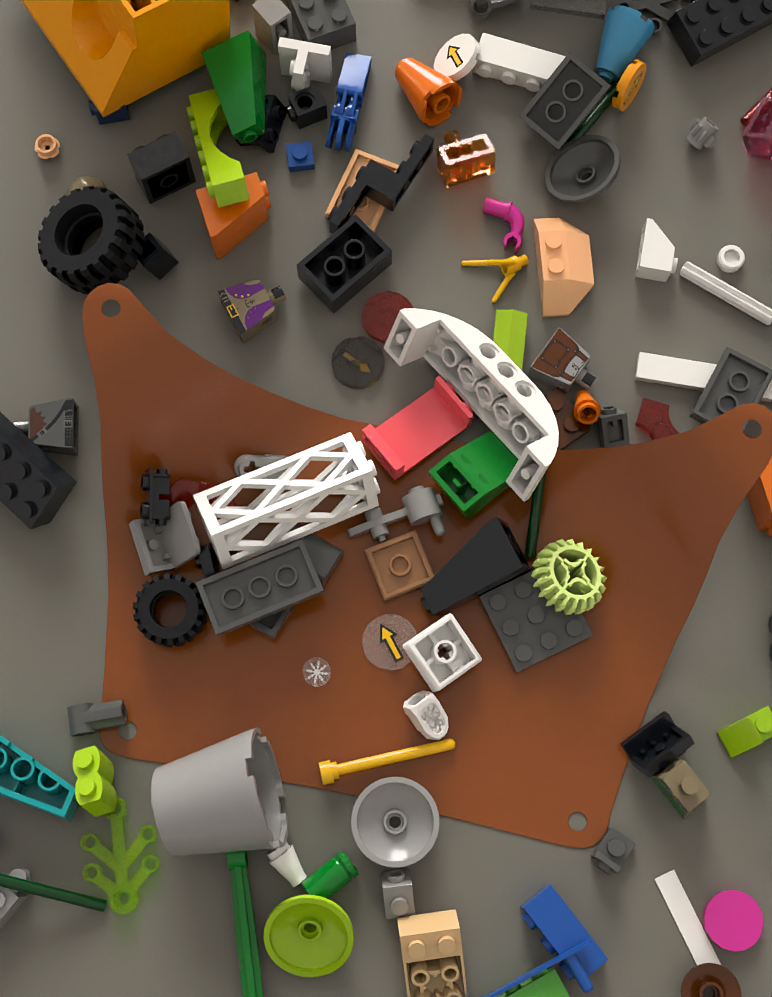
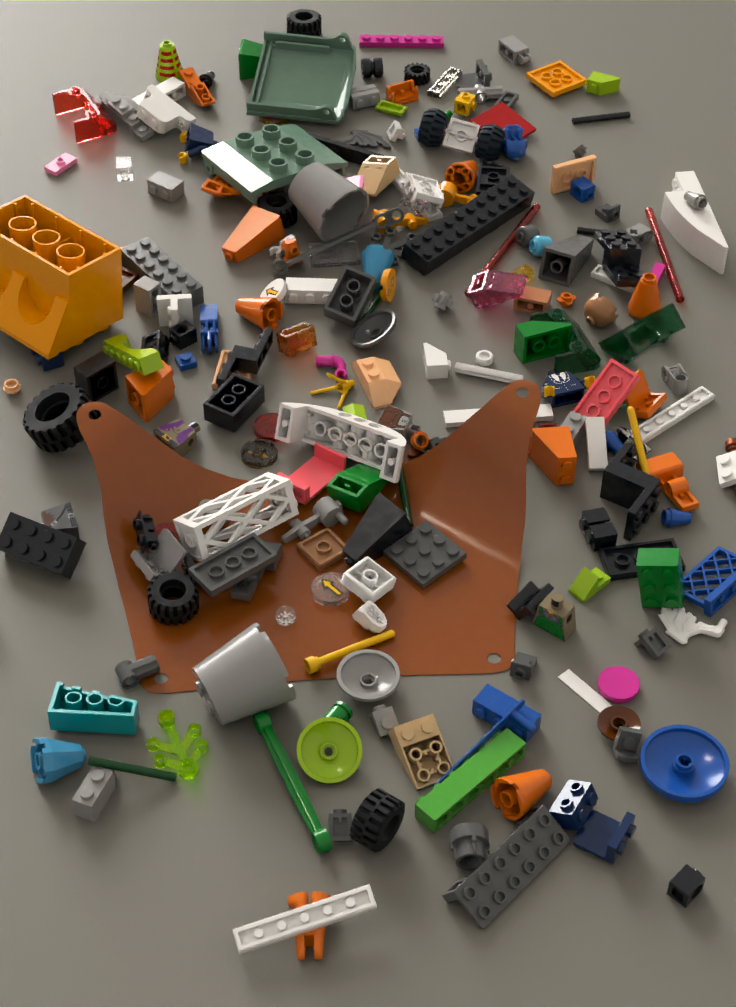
camera: 15 degrees left, 30 degrees down
(94, 781) = (148, 699): lime brick -> none
(240, 83) = (132, 320): green slope -> none
(287, 864) = (297, 718): white cone -> none
(559, 586) = (438, 520): yellowish green gear -> none

